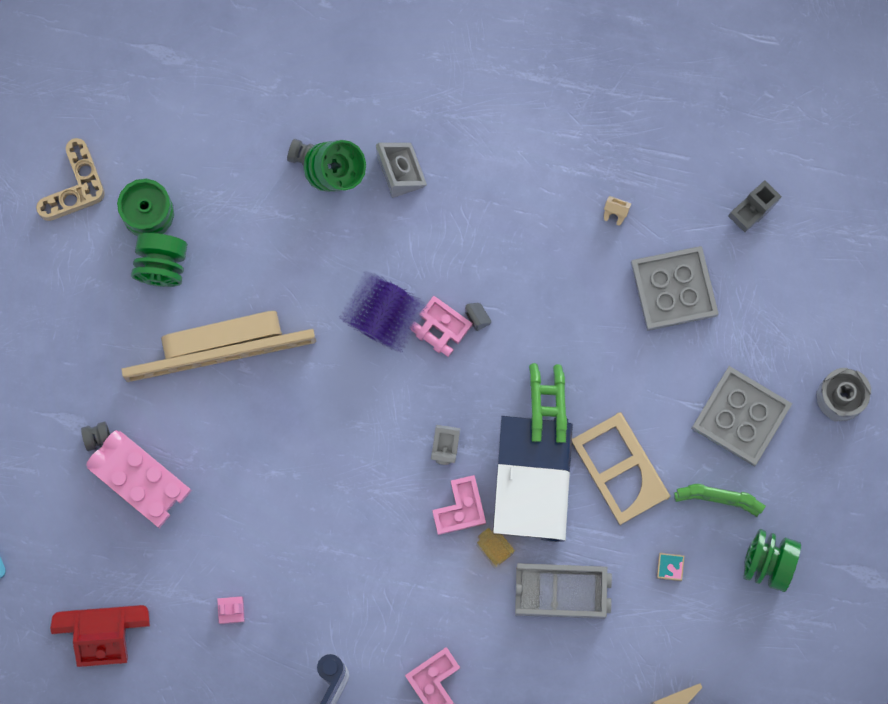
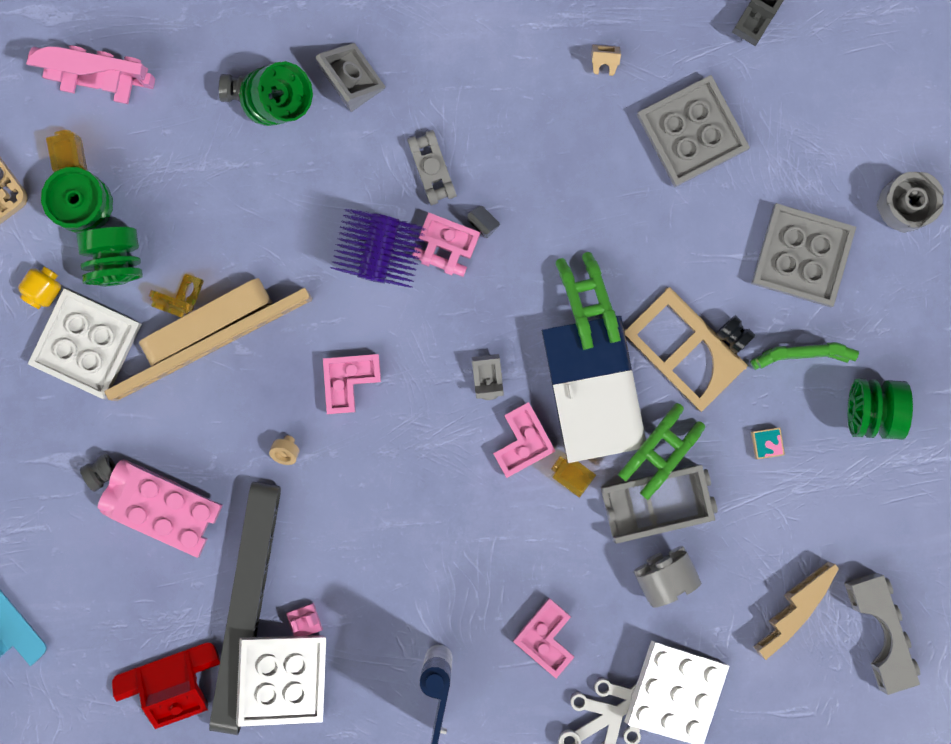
camera: 15 degrees left, 10 degrees up
(92, 270) = (39, 287): none -> yellow head
(115, 326) = (84, 343): none -> white plate
(148, 165) = (66, 150): none -> clear yellow brick
(183, 585) = (245, 599): none -> dark grey beam
(189, 108) = (90, 70): none -> bright pink piece
(197, 652) = (280, 680): none -> white plate
(204, 314) = (178, 305): none -> clear yellow bracket
(256, 460) = (284, 451): none -> tan tile
(323, 410) = (342, 375): none -> bright pink plate
(446, 260) = (431, 167): none -> light grey plate
(552, 653) = (667, 577): none -> light grey brick
(574, 558) = (665, 466): none -> bright green piece
(665, 466) = (735, 334): none -> black wheel

